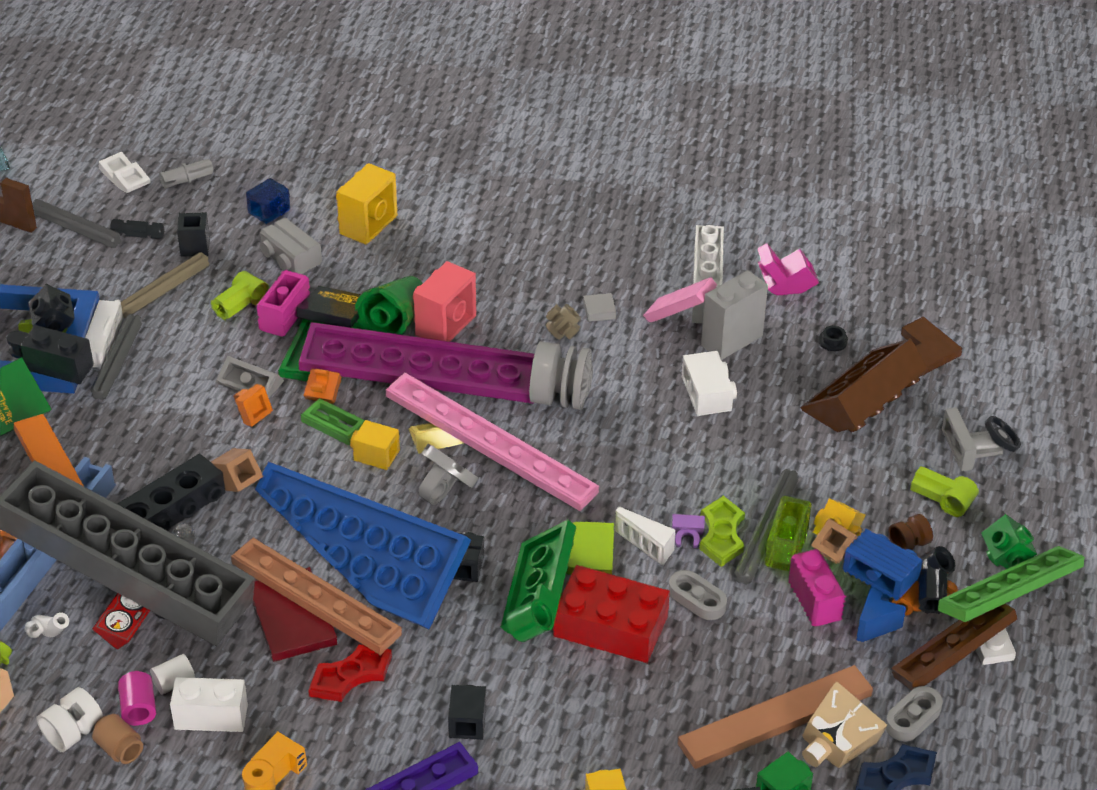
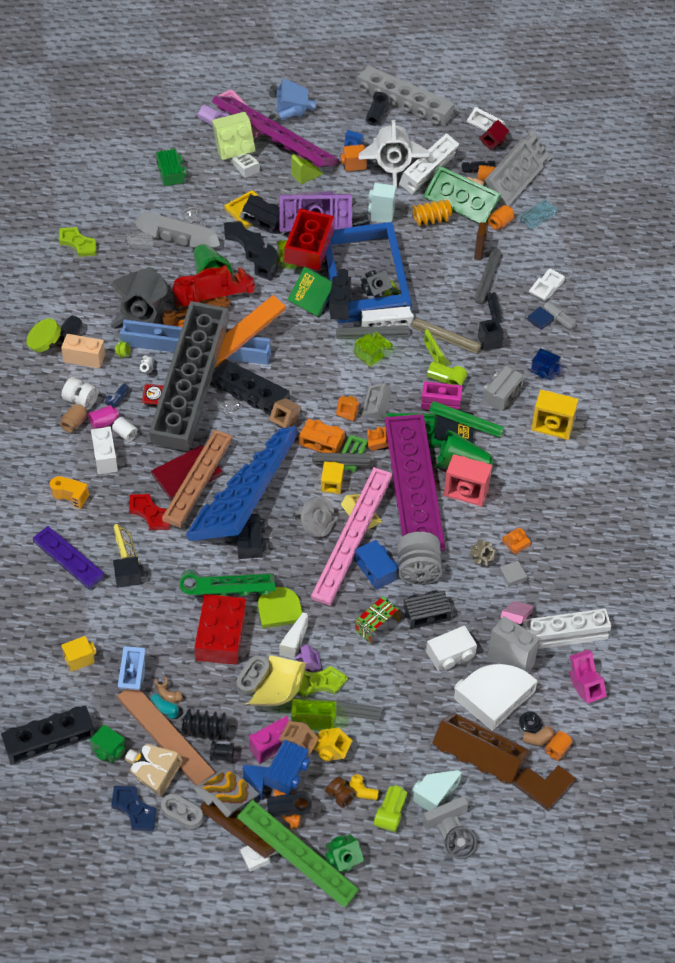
camera: 75 degrees right, 10 degrees up
(95, 670) = (118, 396): none -> dark blue arm
(151, 360) = (371, 348): none -> clear neon green brick
(179, 192) = (540, 318): none -> dark blue tile
(184, 297) = (435, 348): none -> lime slope
(297, 441) = (321, 437): none -> orange brick
(332, 288) = (466, 419): none -> green axle
(347, 426) = (343, 458): none -> dark grey axle
(413, 712) = (124, 542): none -> light yellow slope
(547, 292) = (516, 540): none -> orange tile
(549, 427) = (376, 564): none -> blue brick
(637, 393) = (427, 609): none -> black brick
(645, 440) = (376, 616): none -> piece
(662, 728) = (132, 668): none -> light blue slope
(688, 705) = (175, 697): none -> medium nougat arm
(720, 551) = (283, 678): none -> light yellow piece
(731, 702) = (165, 706): none -> teal arm
(775, 659) = (205, 724): none -> black piece
(789, 358) = (494, 692): none -> white brick
(823, 645) = (222, 751): none -> black bush
(859, 336) = (539, 738): none -> medium nougat arm
(874, 320) = (558, 745): none -> orange piece
(896, 649) = (226, 791): none -> slope
(913, 507) = (362, 792): none -> yellow arm
(925, 440) = (435, 789): none -> light aqua slope

